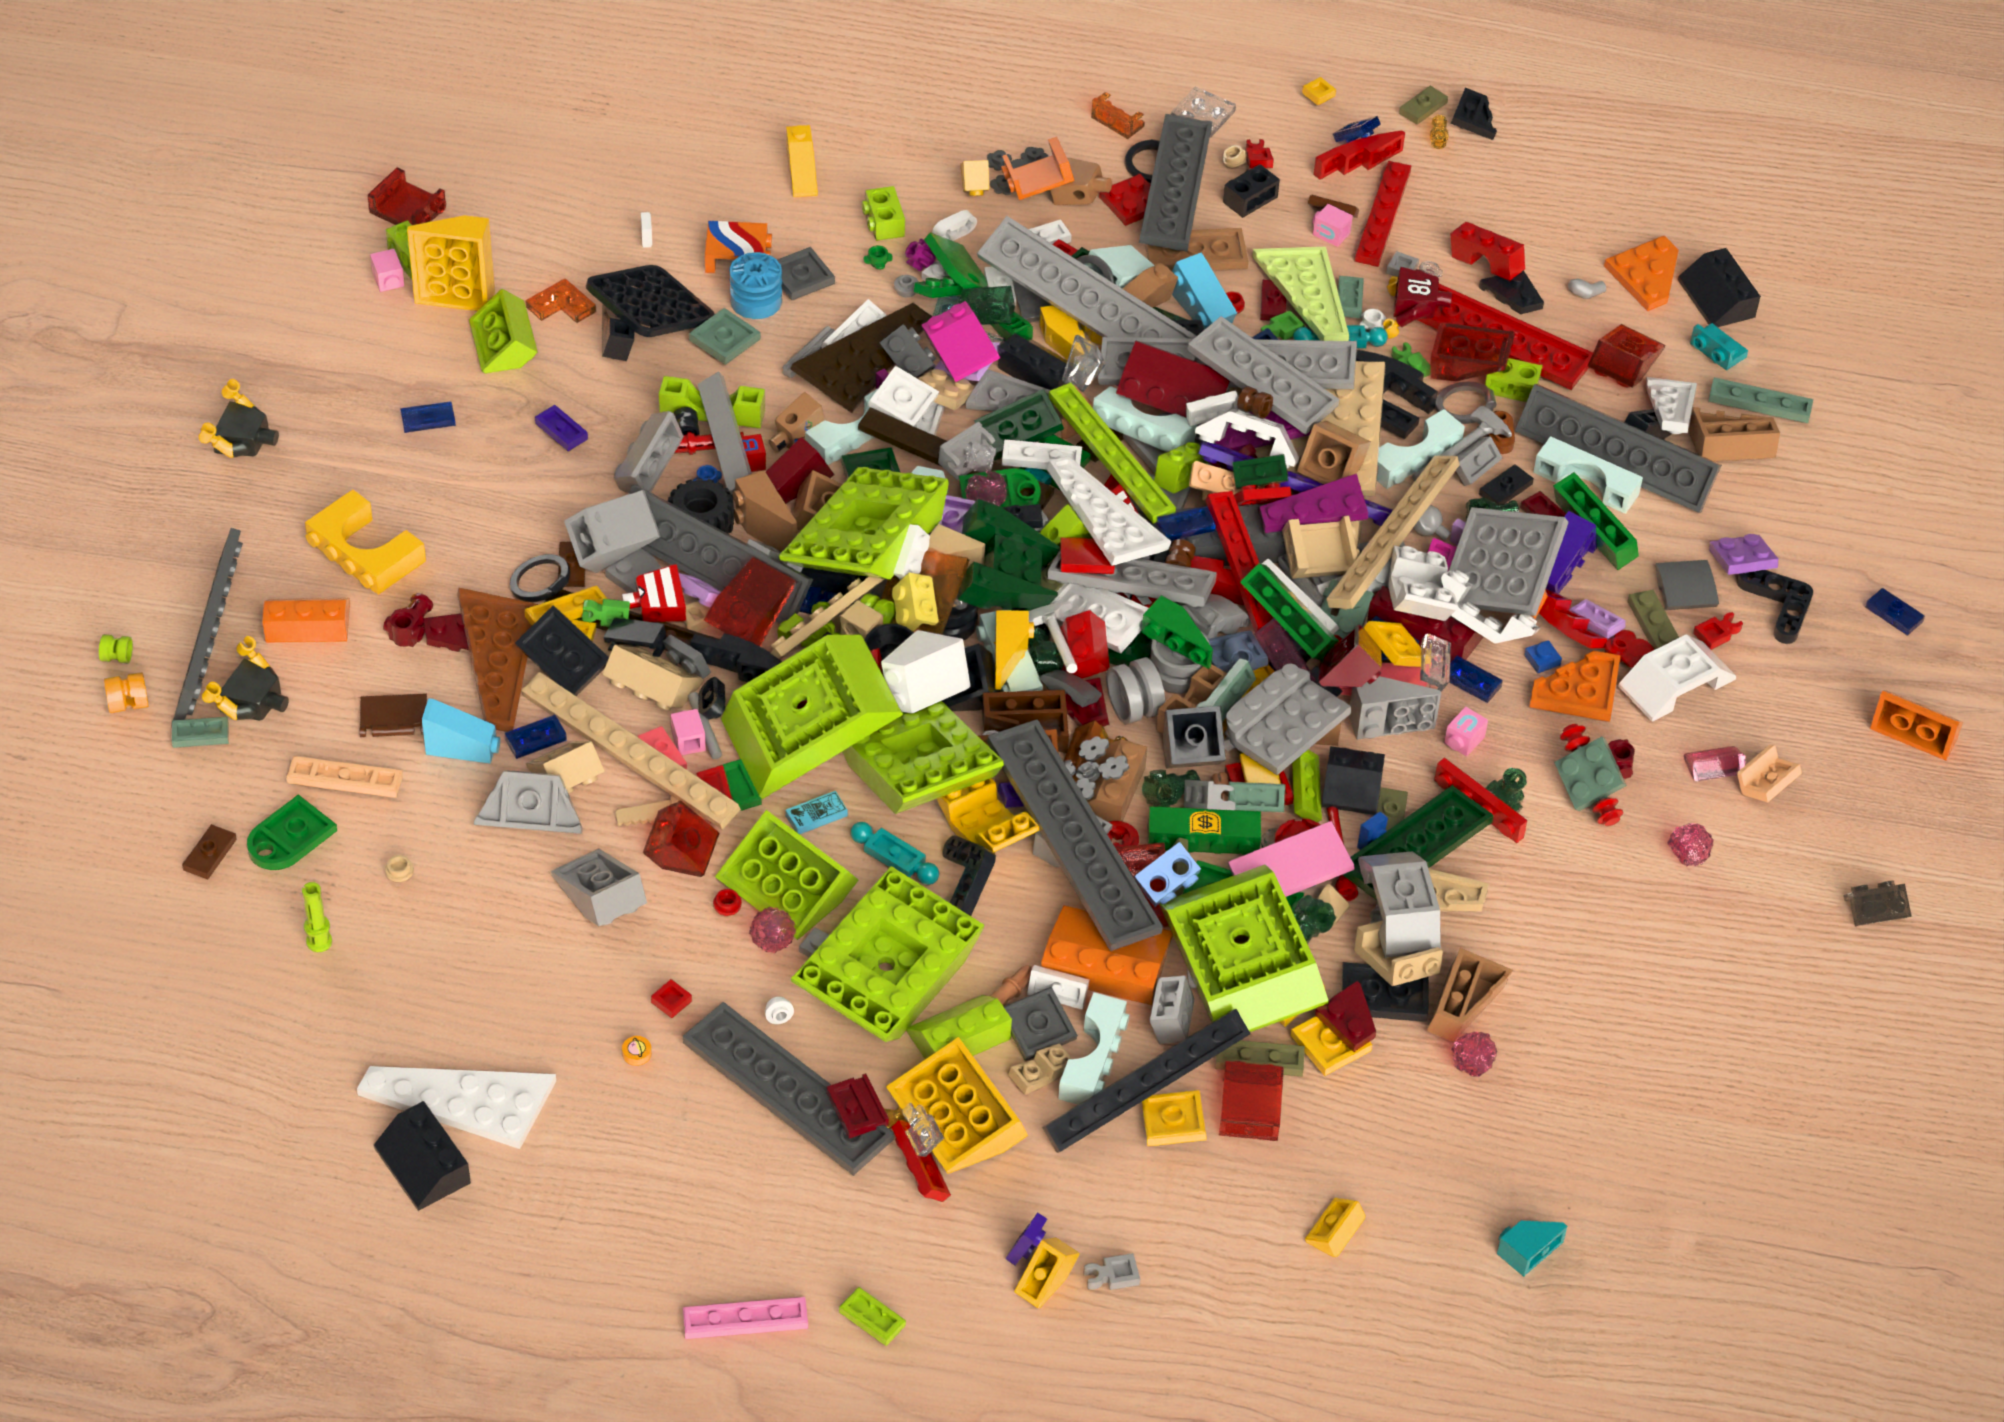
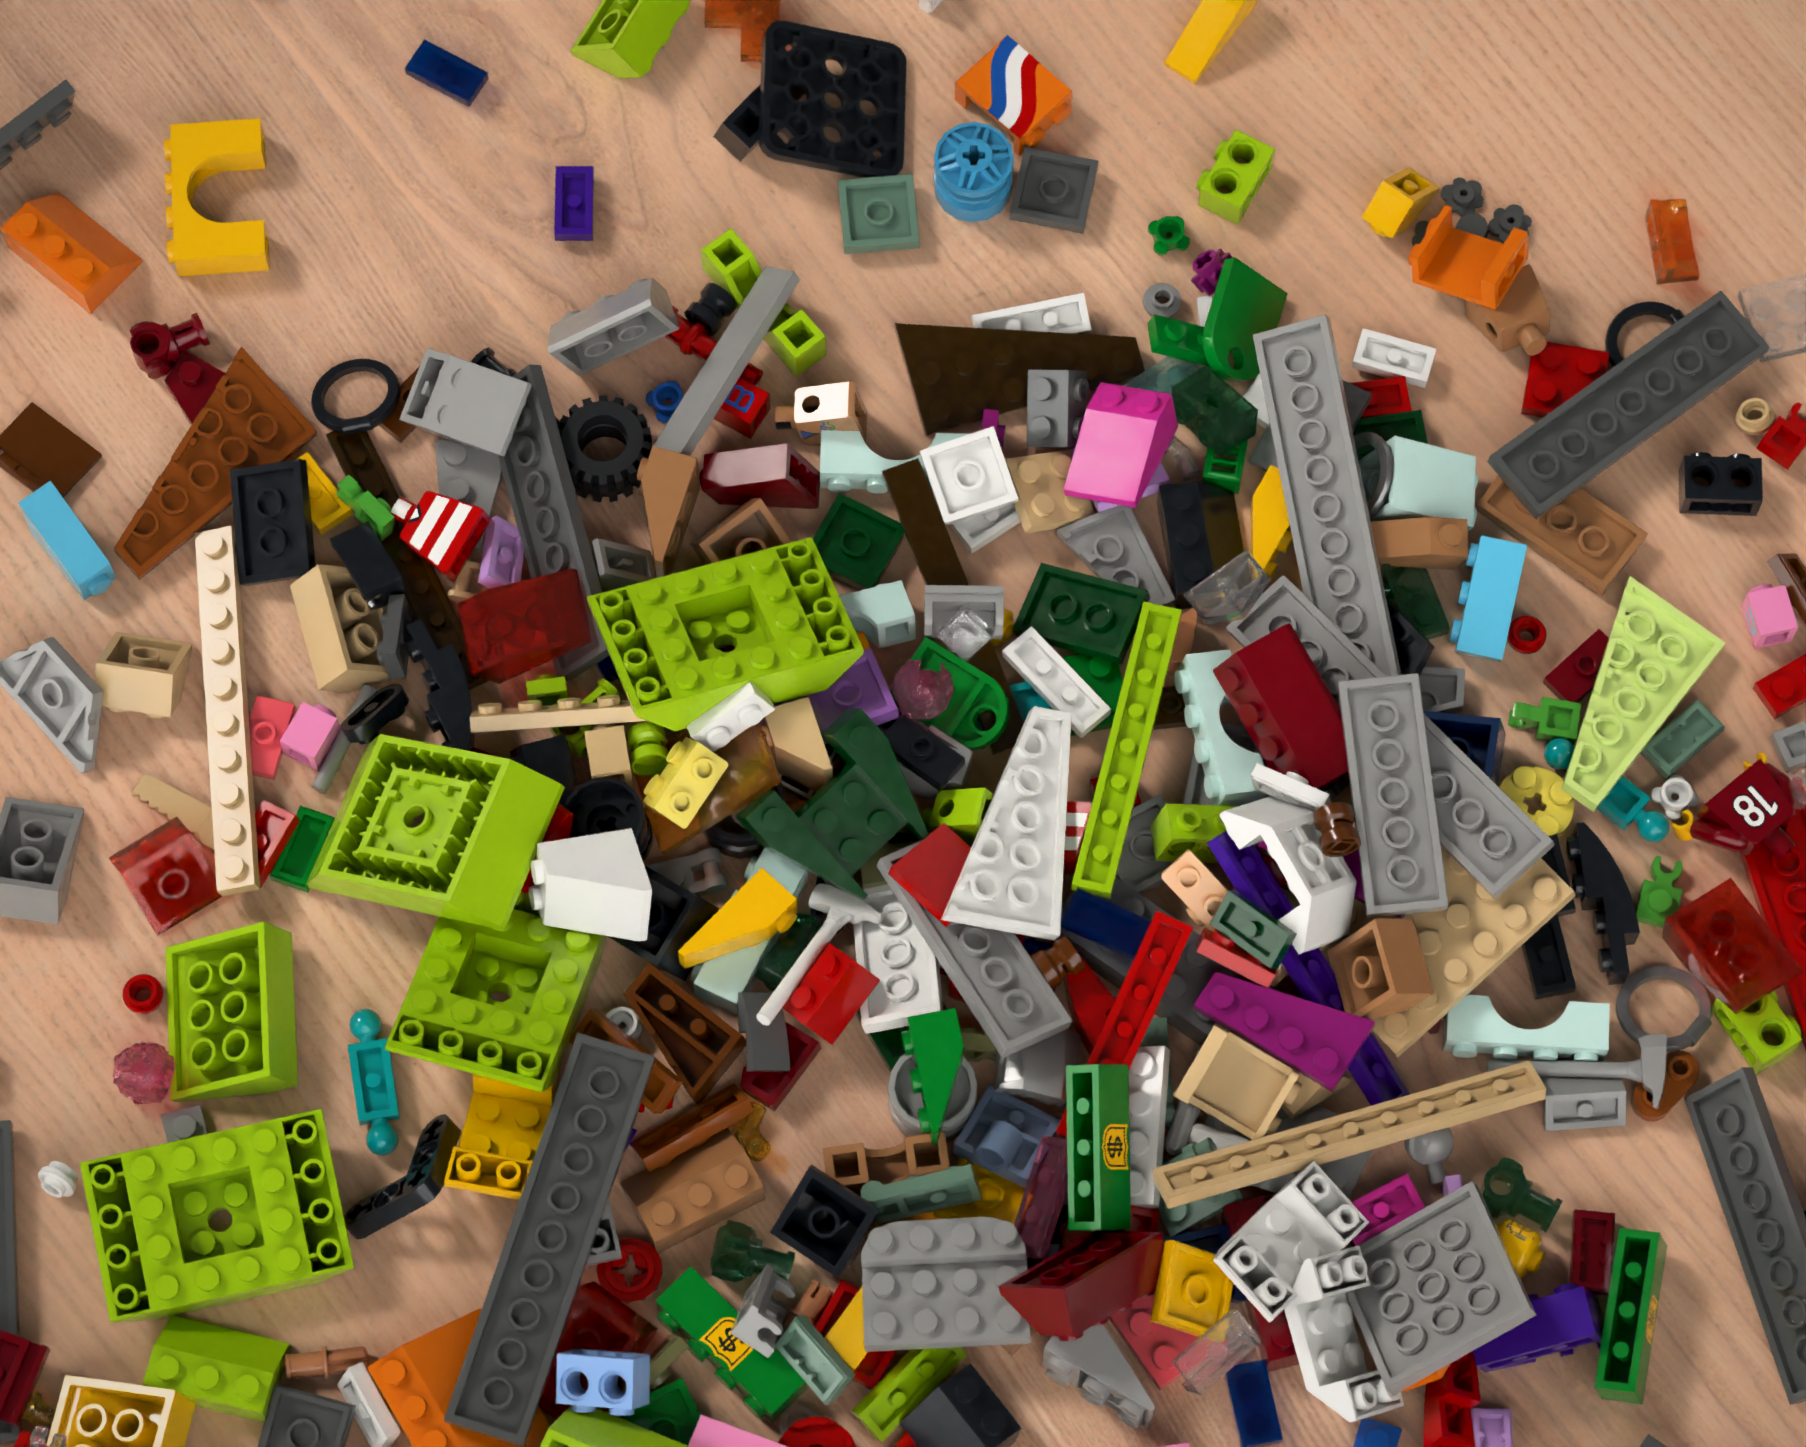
camera: 45 degrees right, 20 degrees up
(535, 736) = (152, 607): clear blue plate -> none
(568, 605) = (333, 462): yellow tile -> none
(811, 347) = (955, 310): light grey axle -> none
(816, 812) = (348, 955): medium azure tile -> none
(956, 225) = (1300, 260): white beam -> none
(1090, 771) = (667, 1163): plant -> none
(1135, 690) = (824, 1096): light grey wheel -> none
(1506, 485) = (1588, 1169): black plate -> none
(1616, 484) = (1687, 1190): light aqua arch -> none

